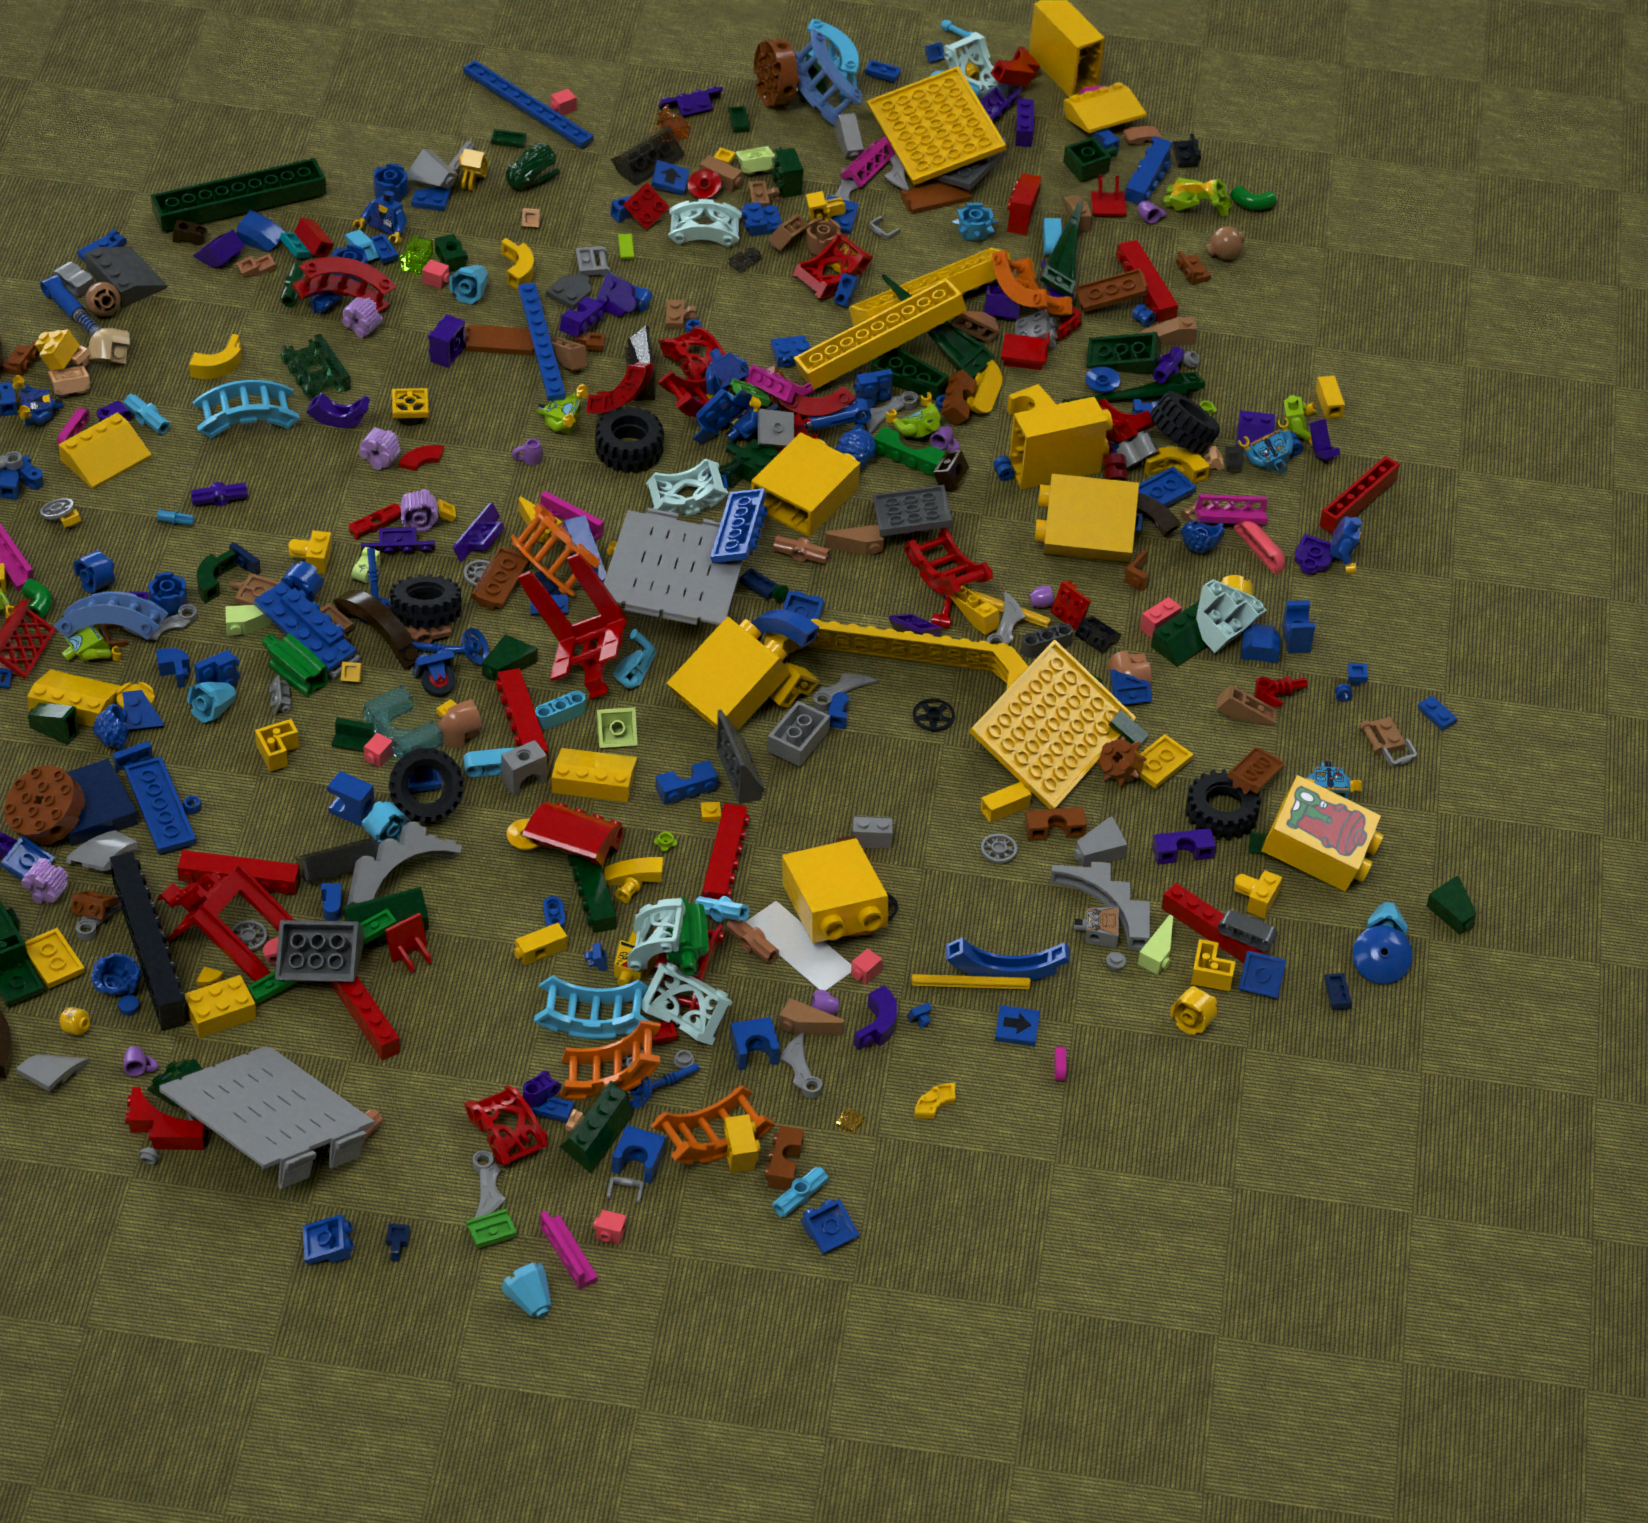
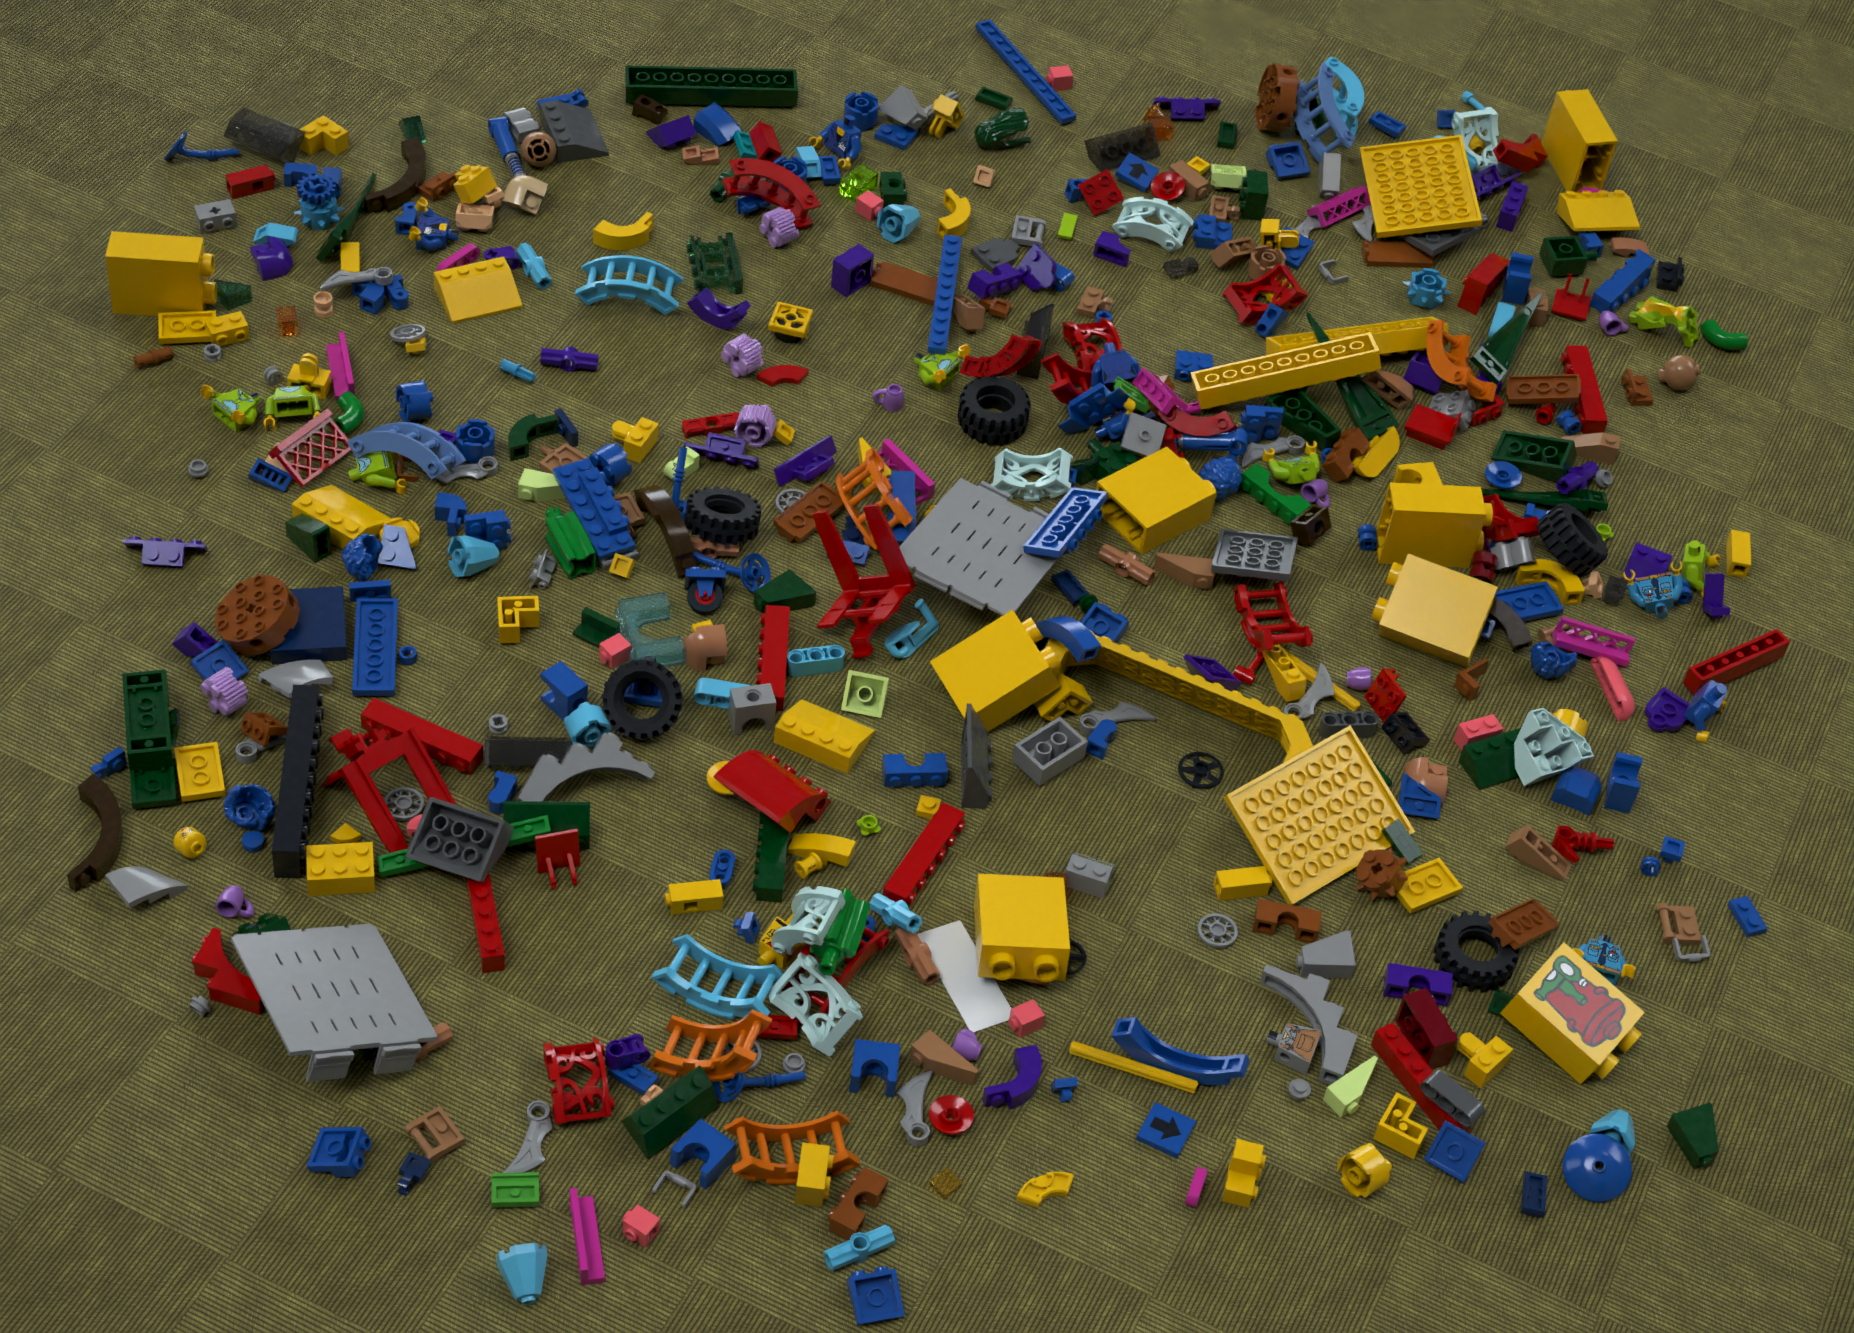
camera: 15 degrees right, 0 degrees up
(296, 843) = (495, 719): none -> light grey bush
(407, 1199) = (440, 1129): none -> medium nougat plate
(675, 259) = (1110, 249): none -> dark purple arch
(805, 130) = (1288, 160): none -> blue plate
(834, 1057) = (951, 1107): none -> red dish
(1052, 192) = (1517, 278): none -> blue piece
(1095, 1040) = (1243, 1170): none -> yellow brick
(1120, 312) = (1545, 413): none -> red cone
(1205, 879) = (1426, 1028): none -> dark red brick

